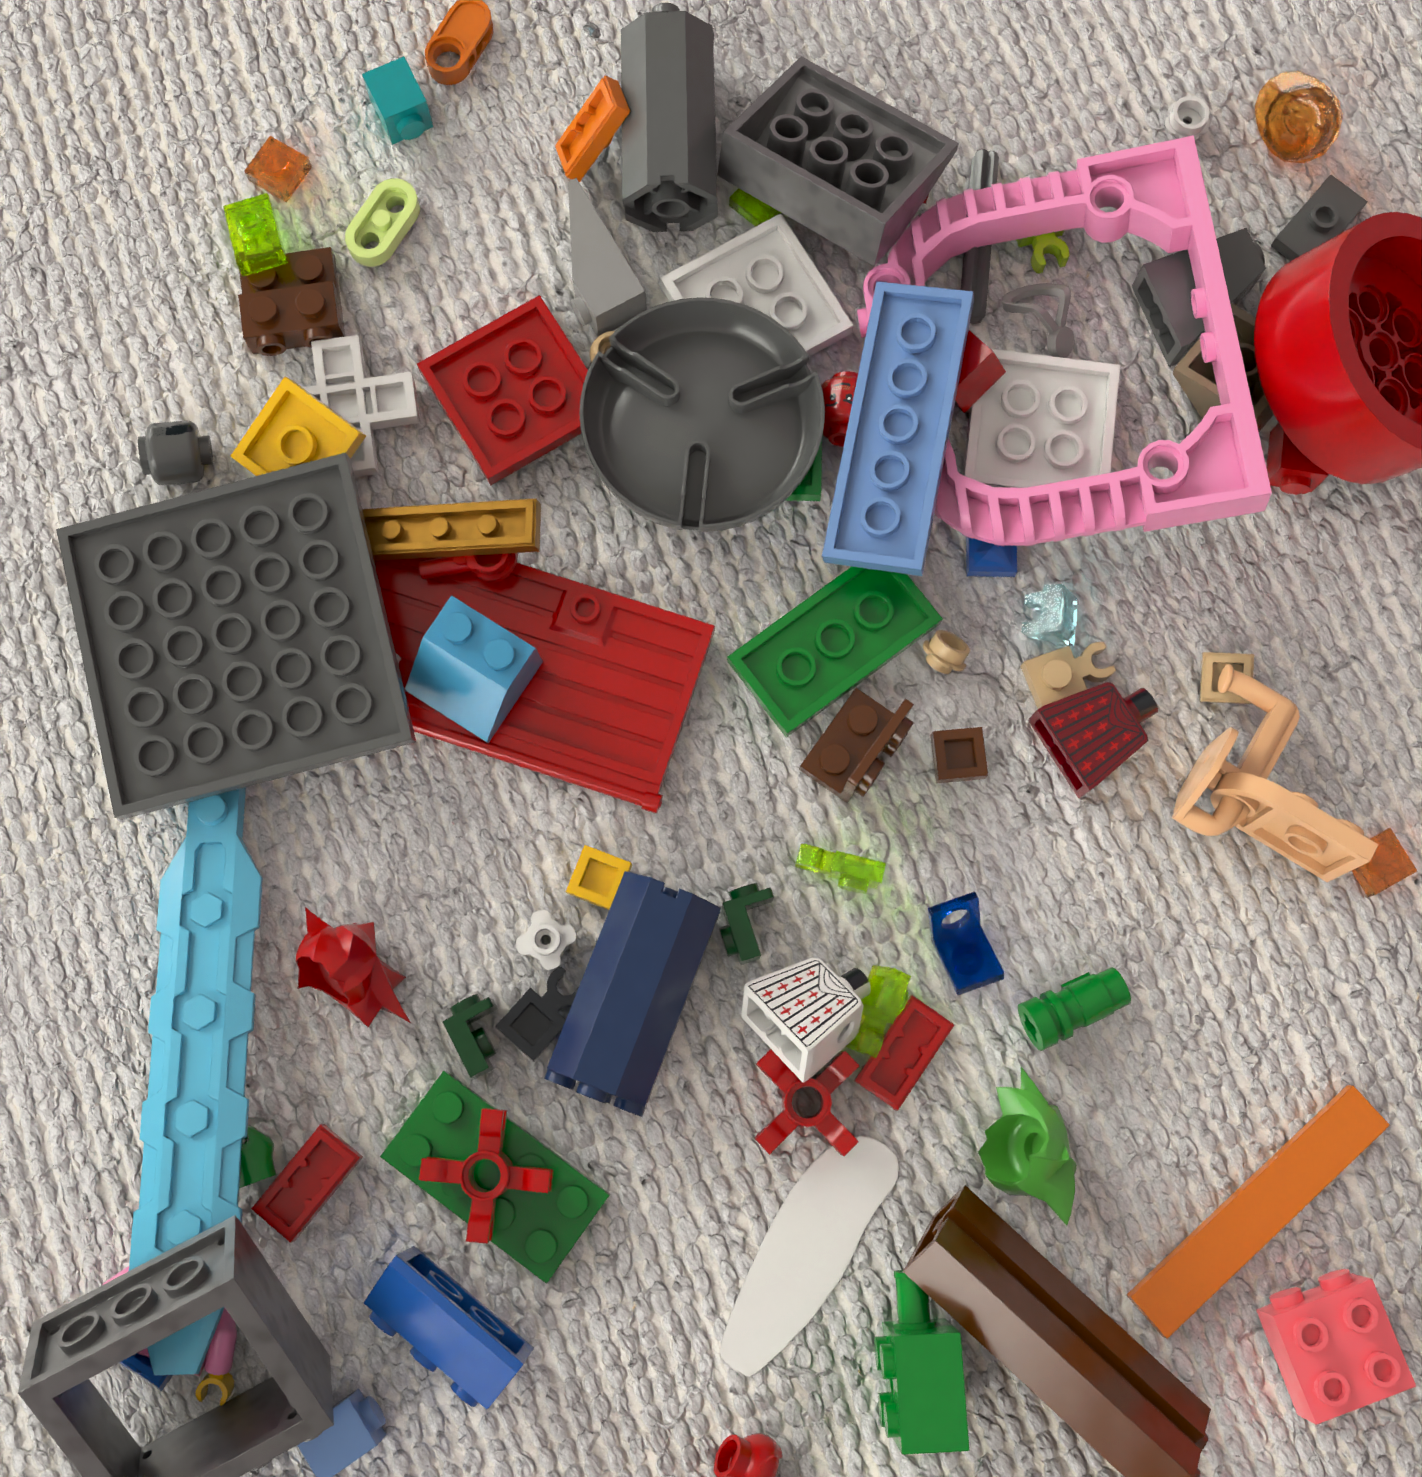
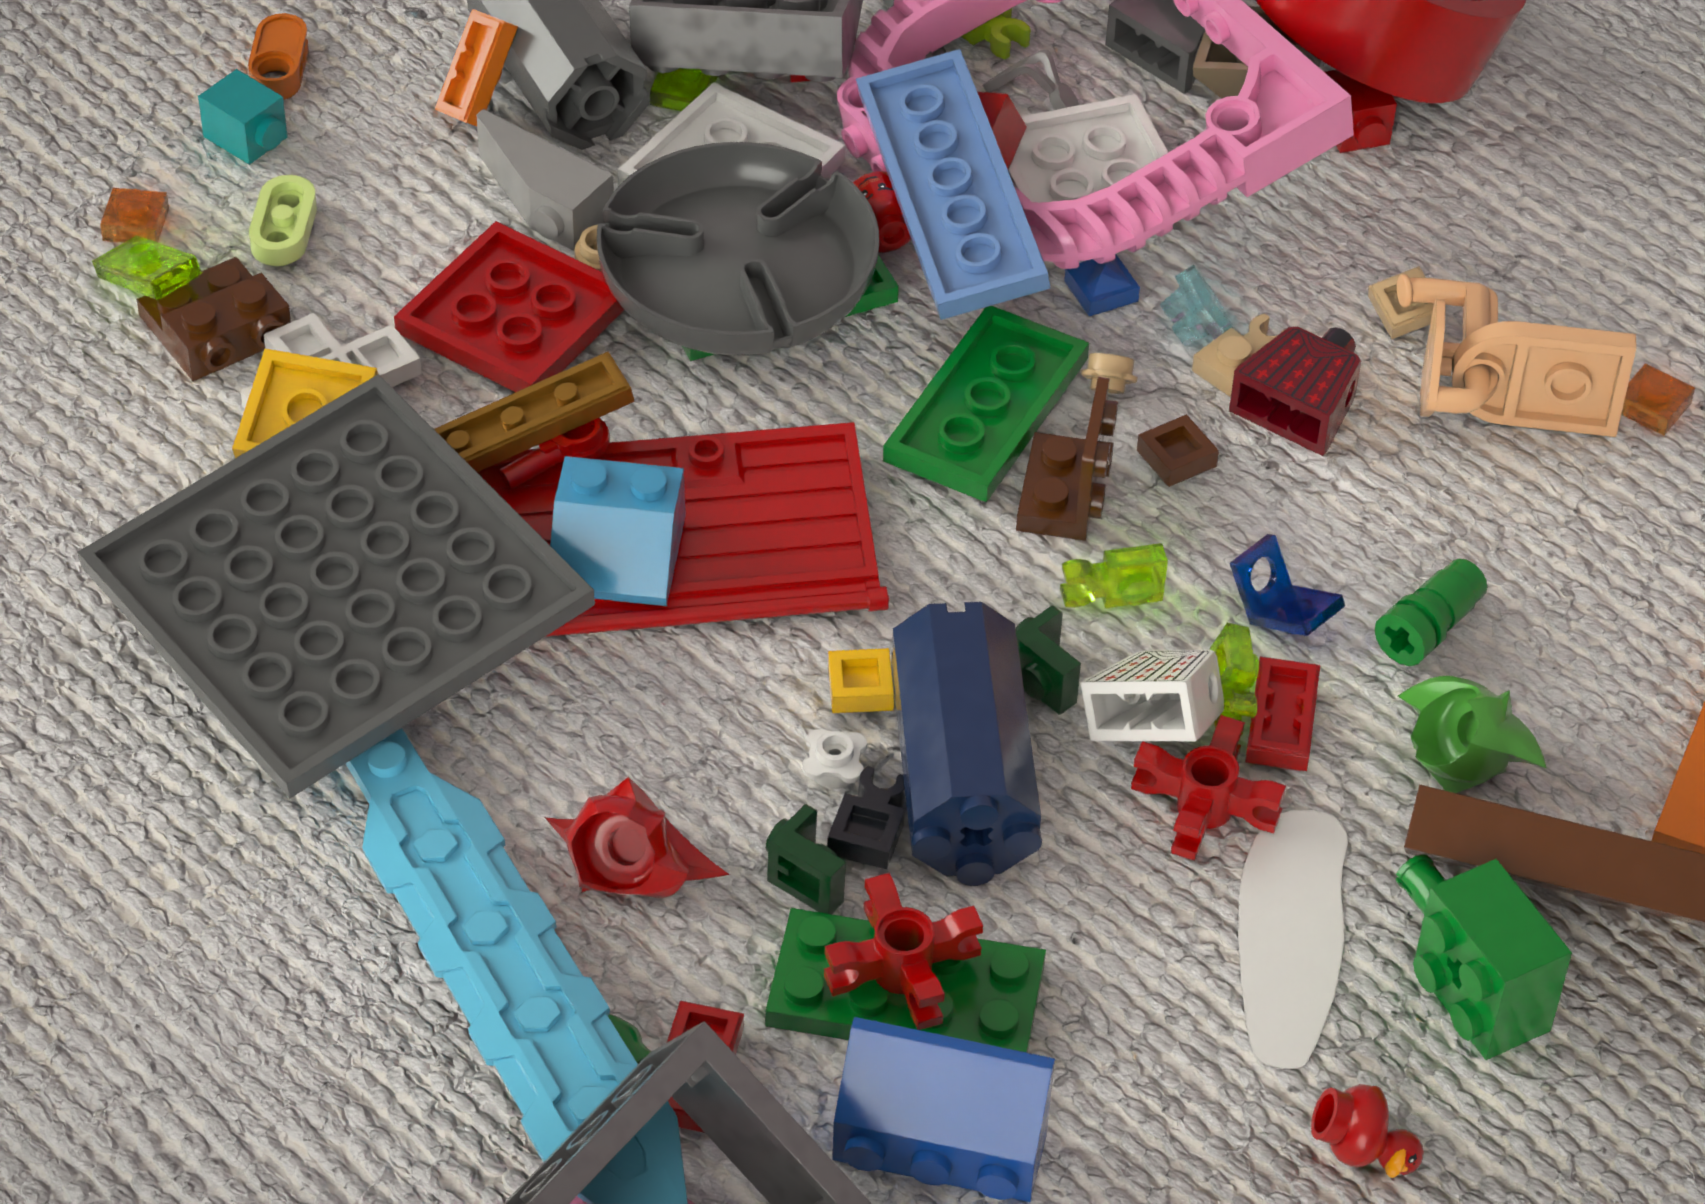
camera: 25 degrees left, 30 degrees down
(174, 452) = (157, 470): dark grey head -> none

